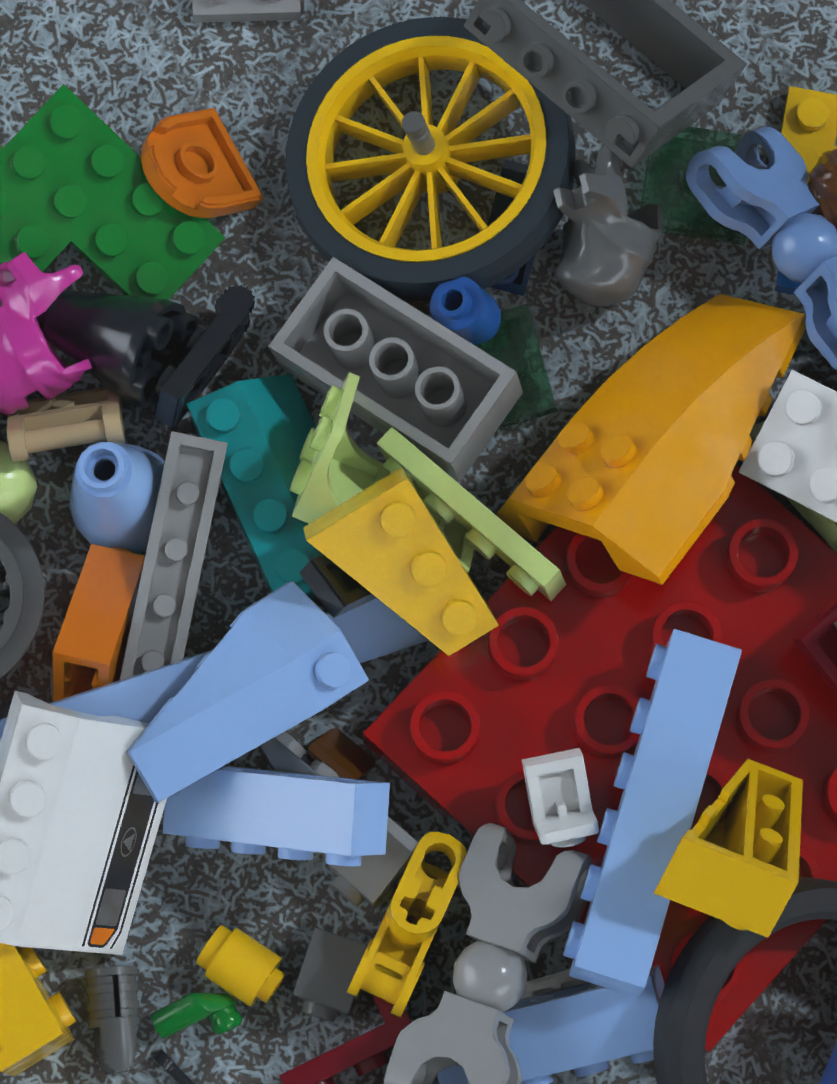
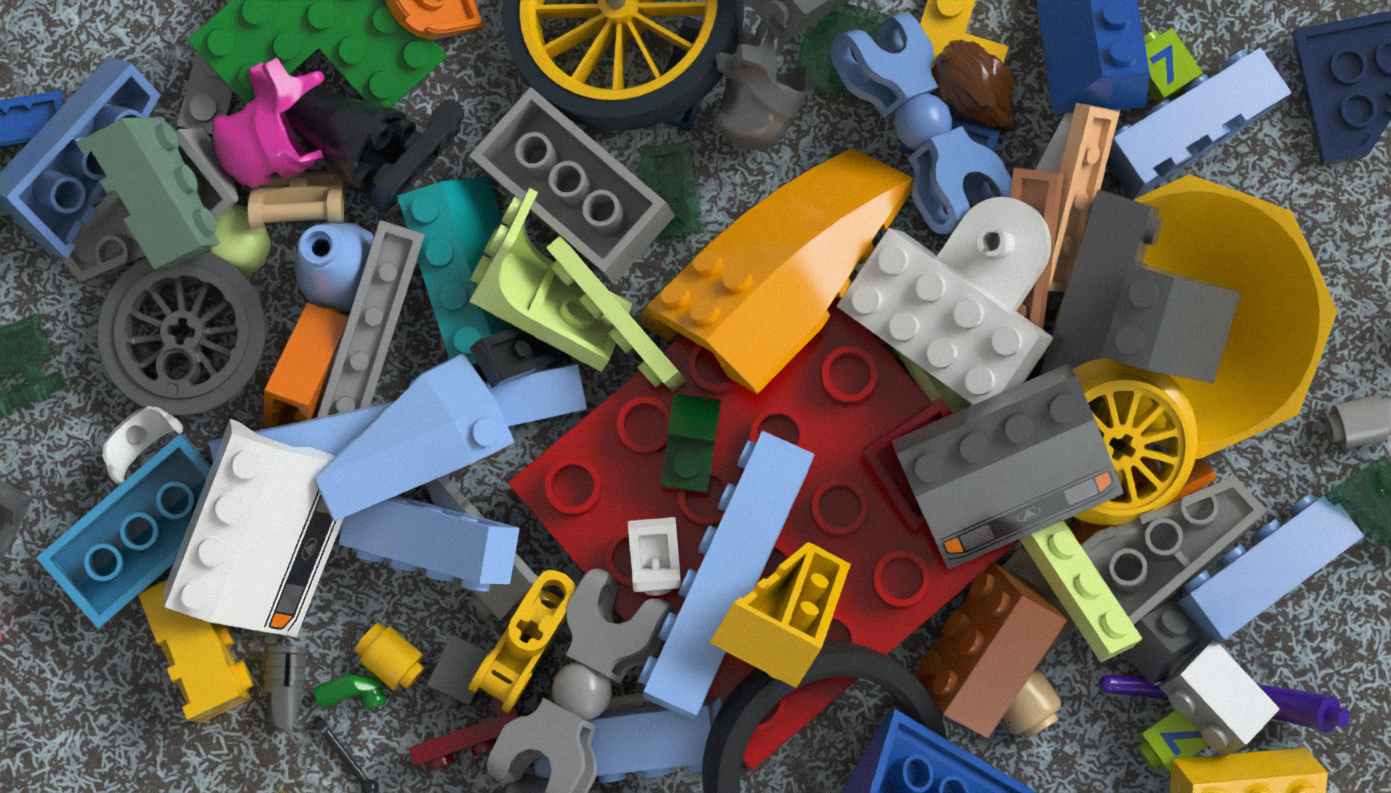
camera: 15 degrees right, 5 degrees up
(341, 755) = (490, 498): reddish brown slope -> none
(405, 561) = (554, 349): yellow wedge -> none
(466, 310) = (635, 144): blue brick -> none
(584, 657) = (690, 443): none -> dark green slope

